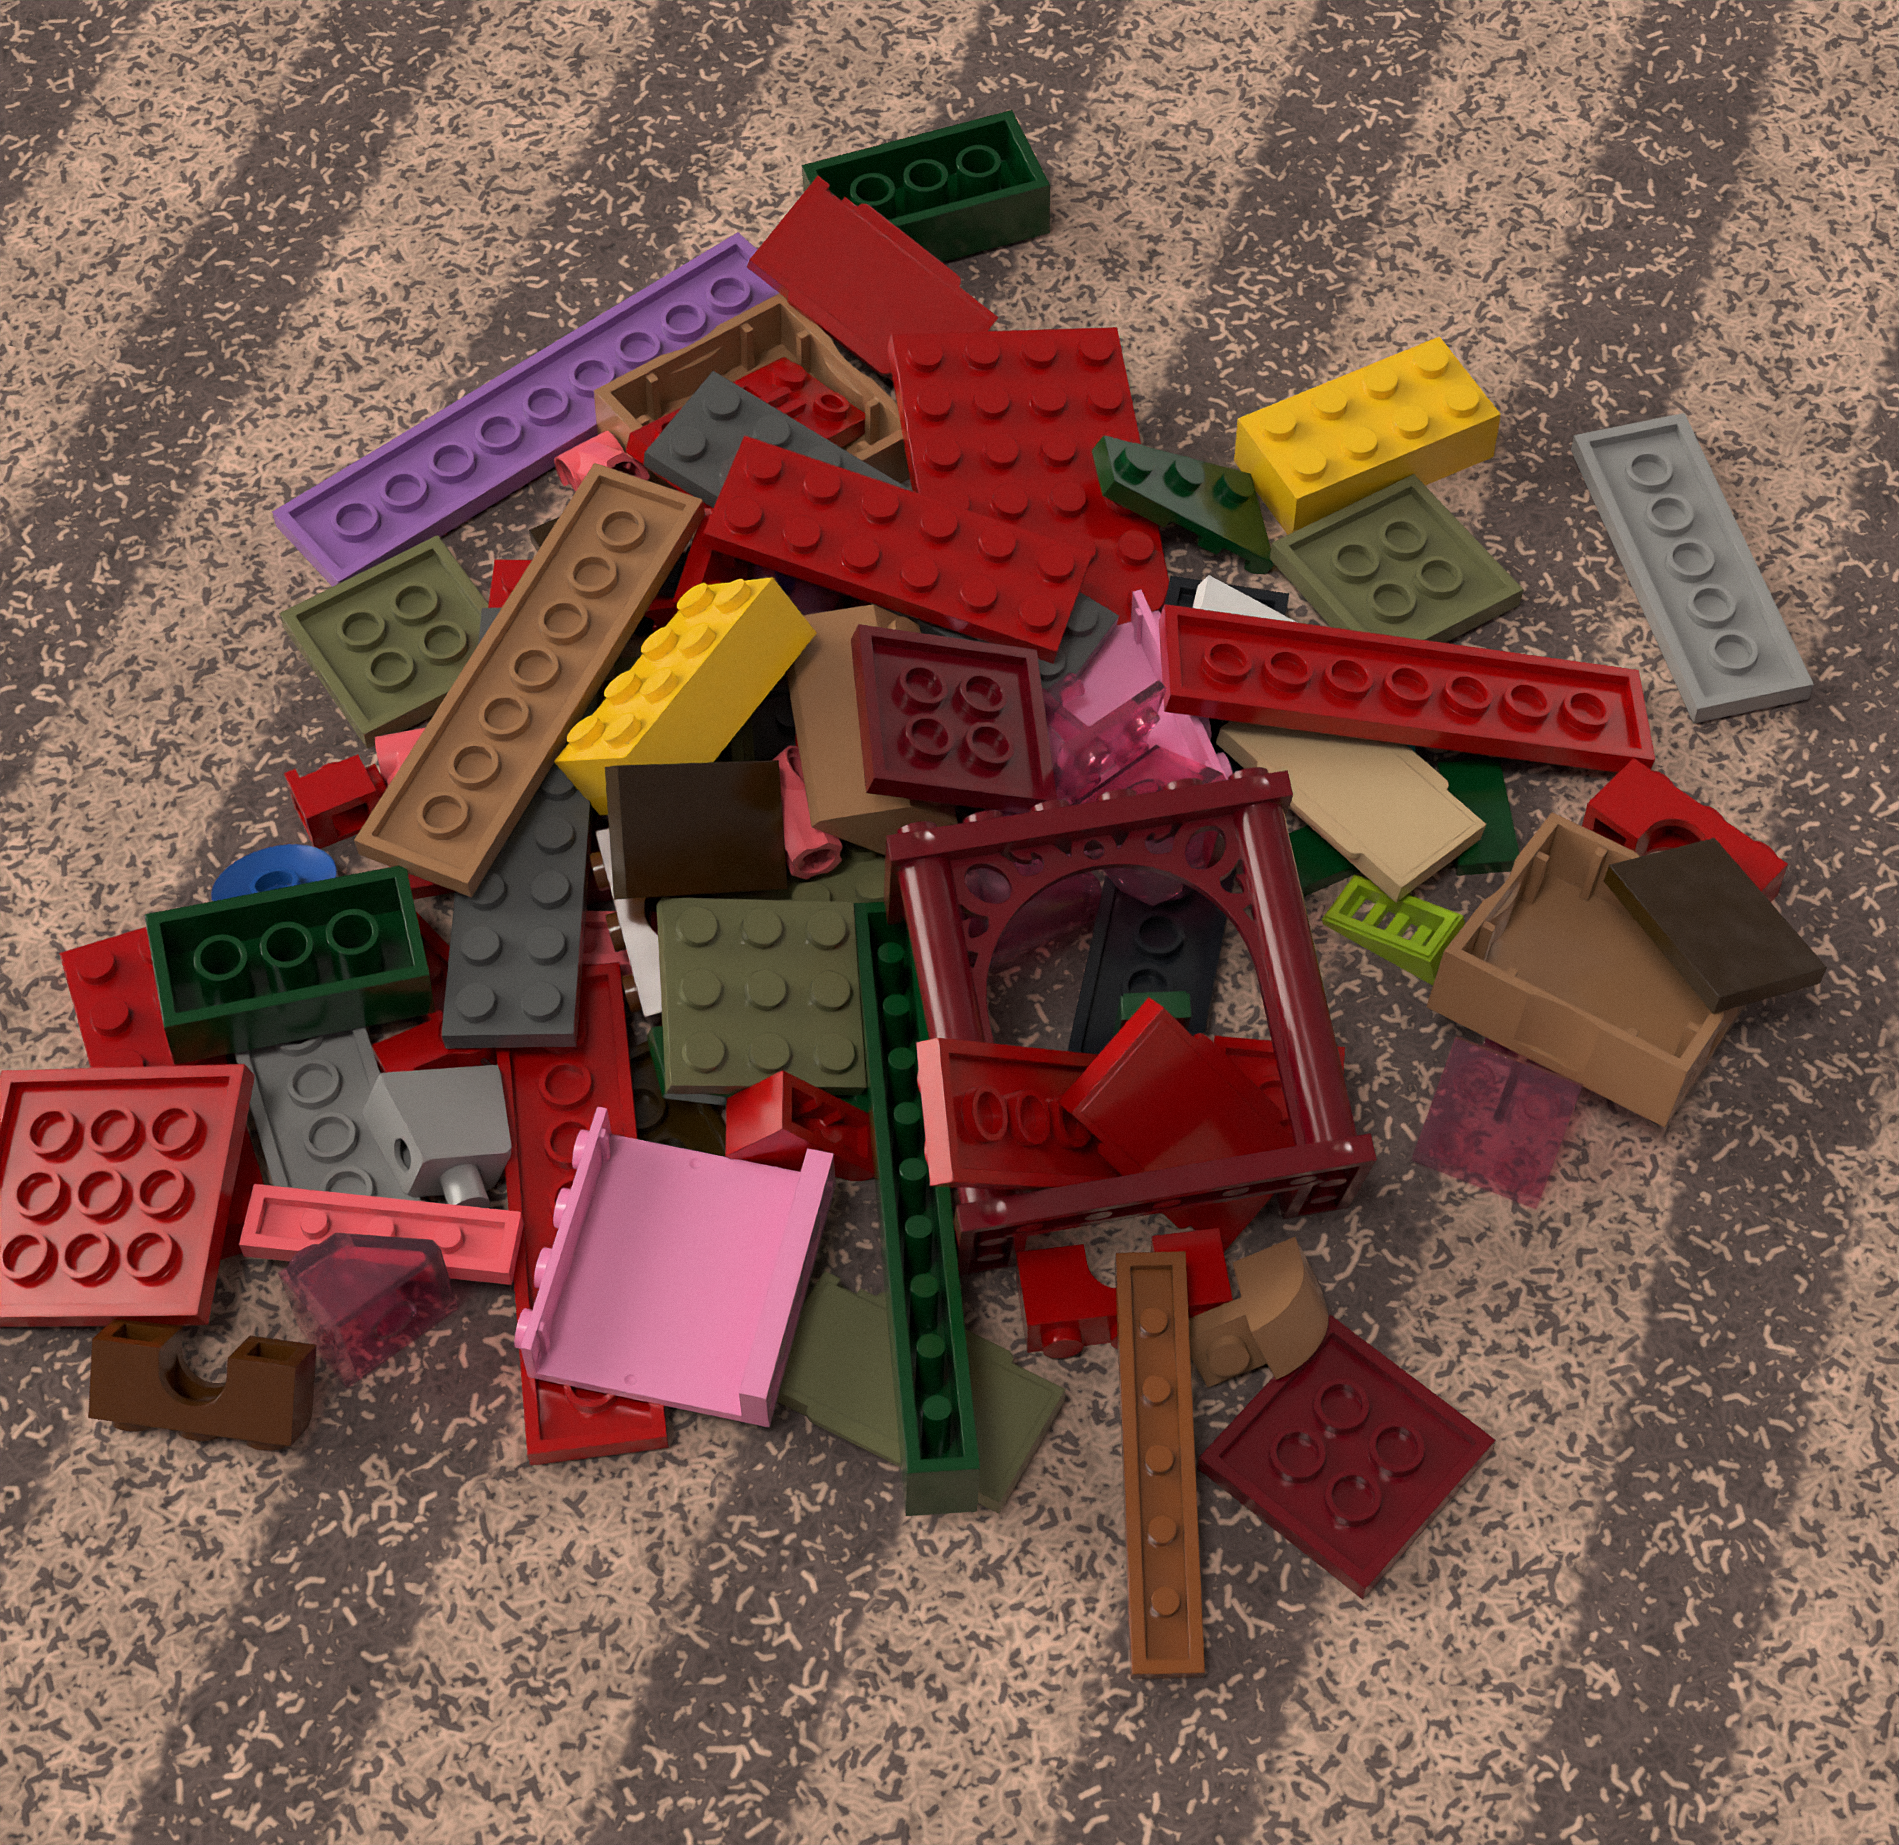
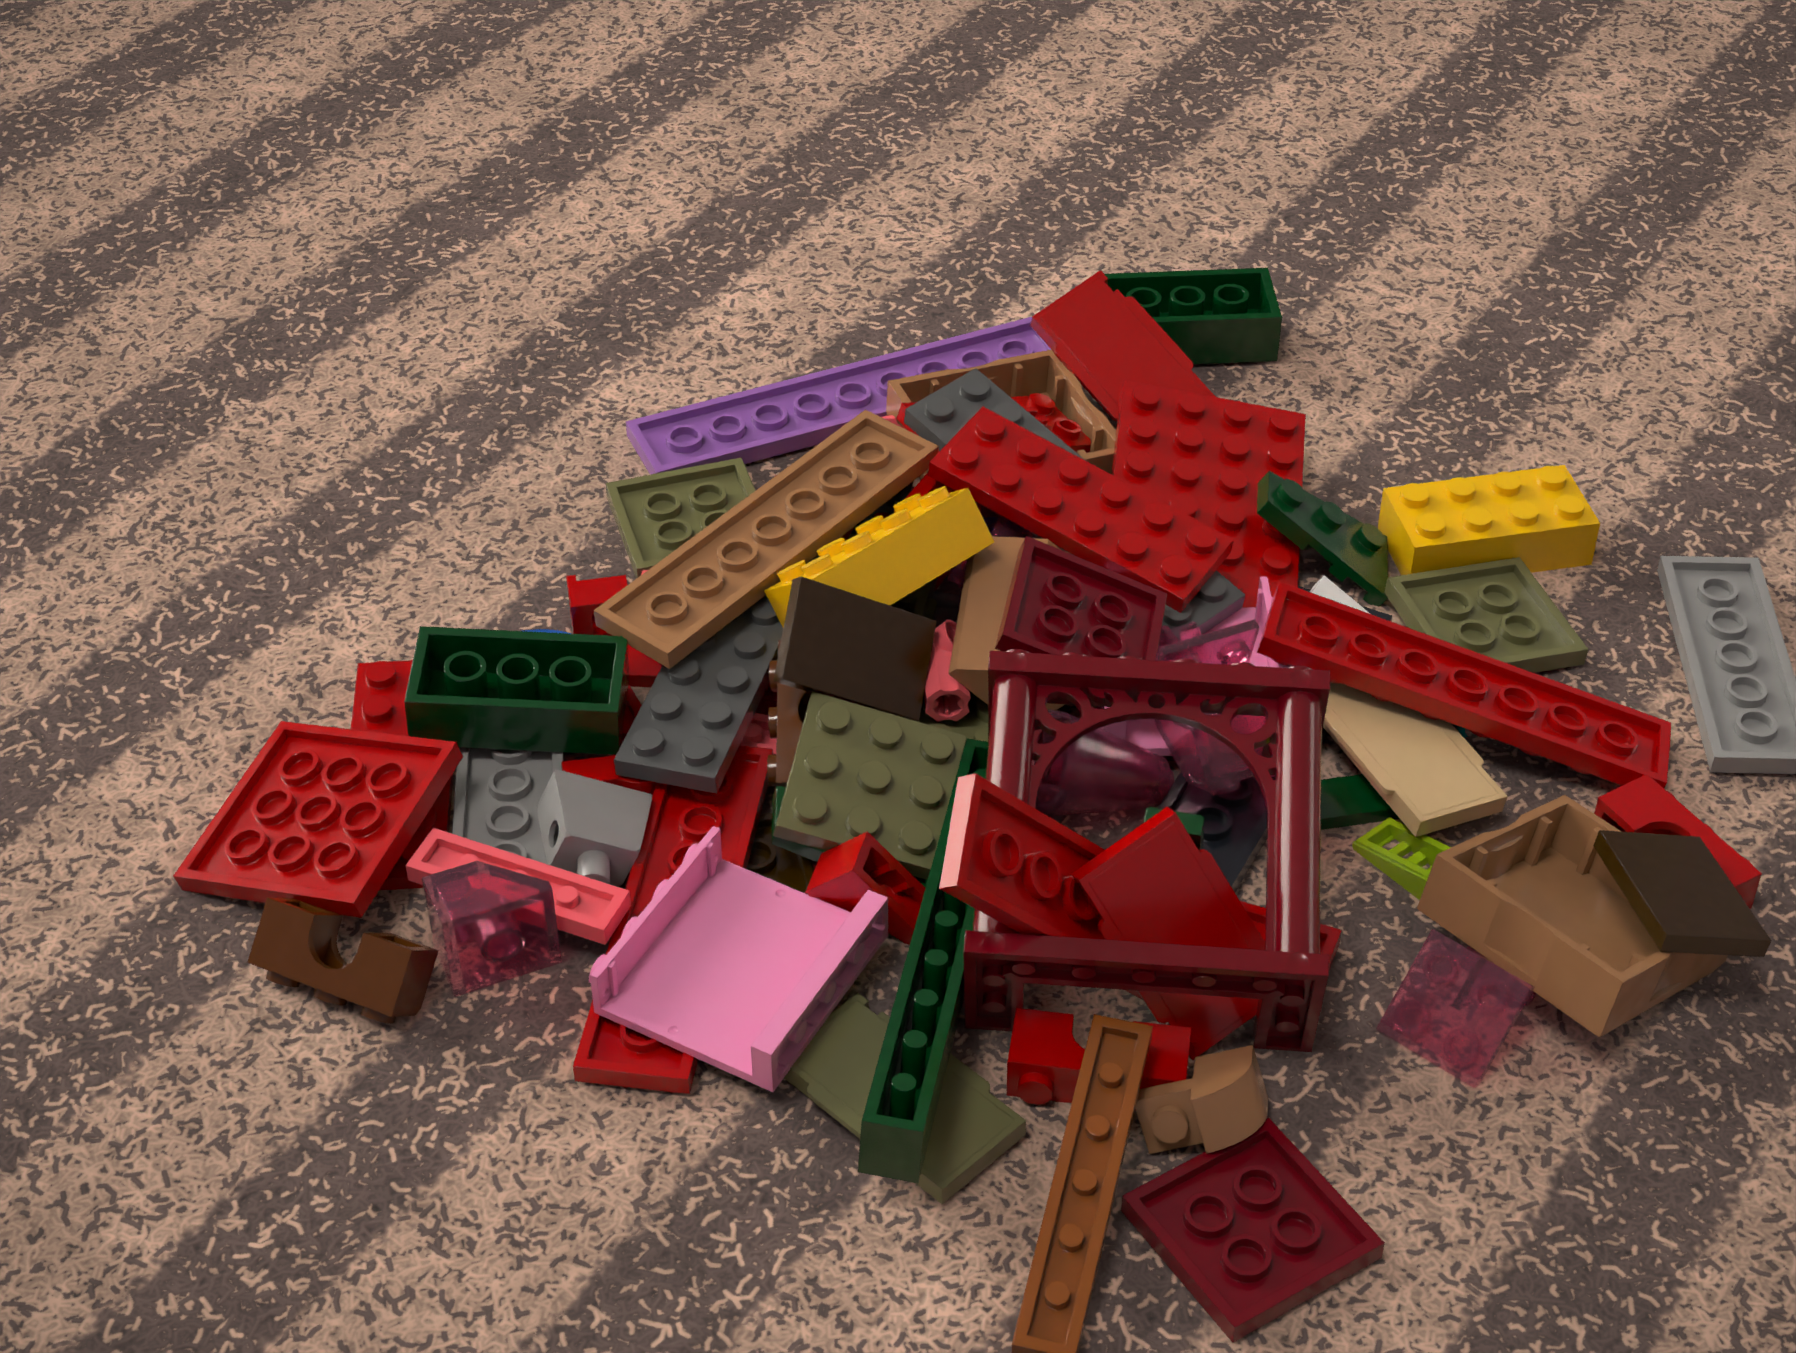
camera: 15 degrees right, 15 degrees down
(1482, 790) = (1517, 780): dark green tile -> none

